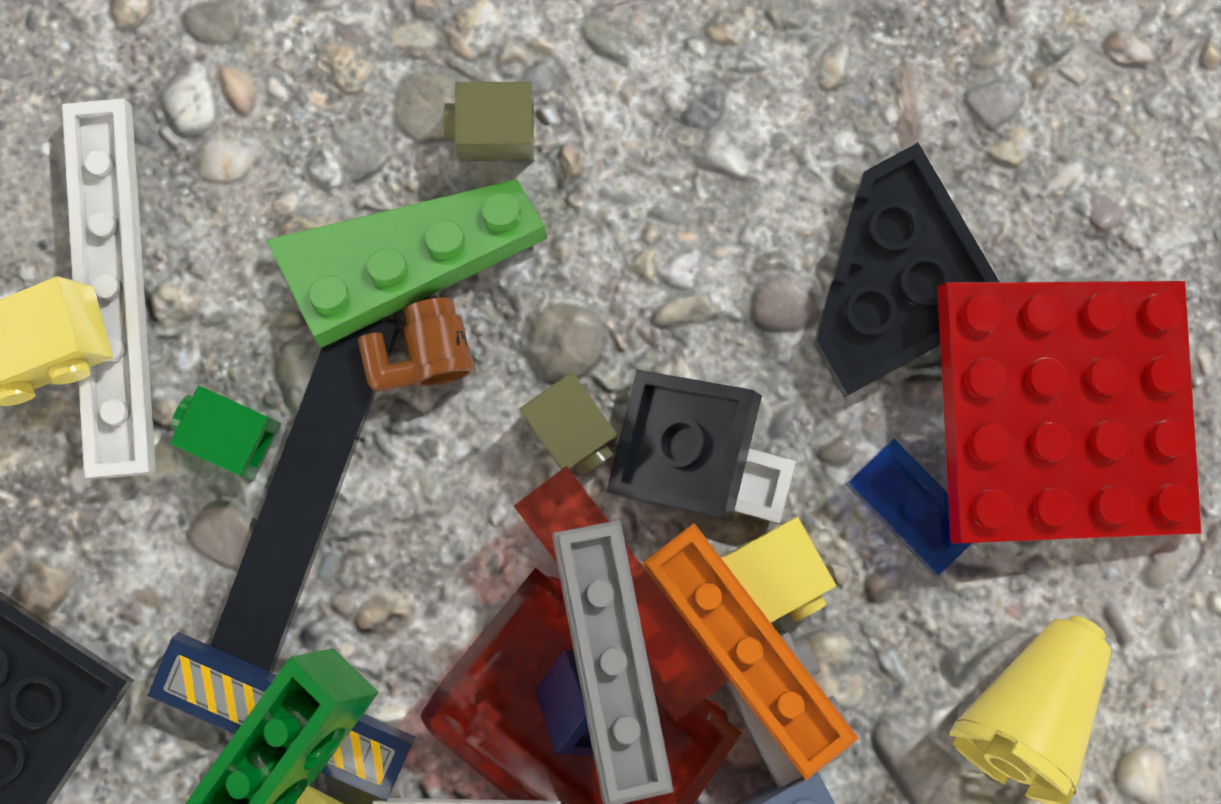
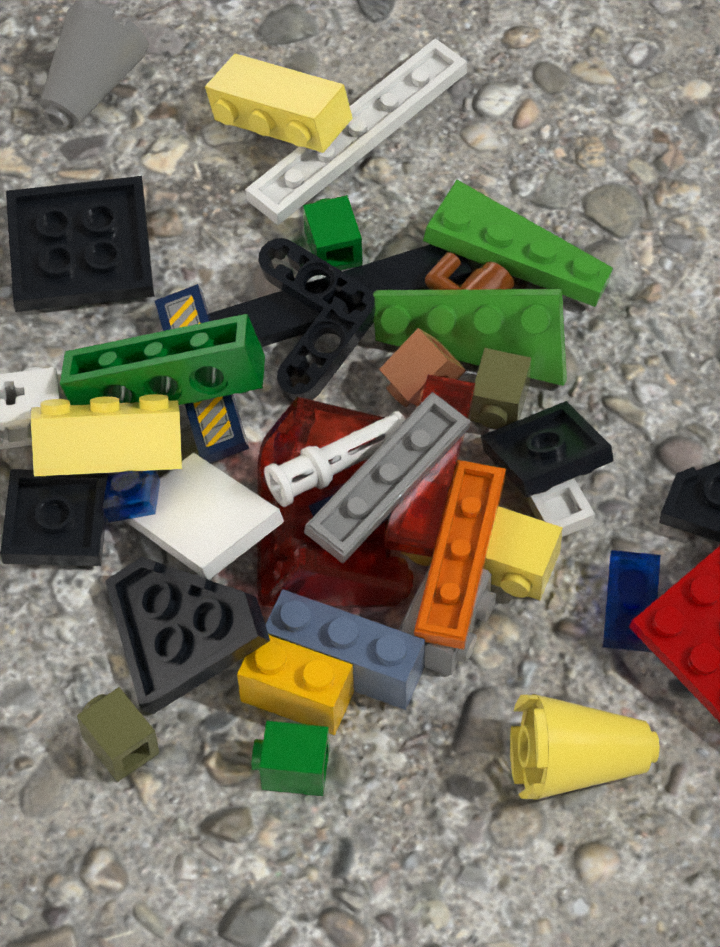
camera: 55 degrees right, 25 degrees down
(337, 527) = (331, 320): none -> black beam
(477, 387) = (470, 320): none -> bright green wing
(483, 490) = (413, 362): none -> nougat brick
(491, 121) = (633, 231): olive brick -> none
(530, 717) = (314, 463): none -> white pin

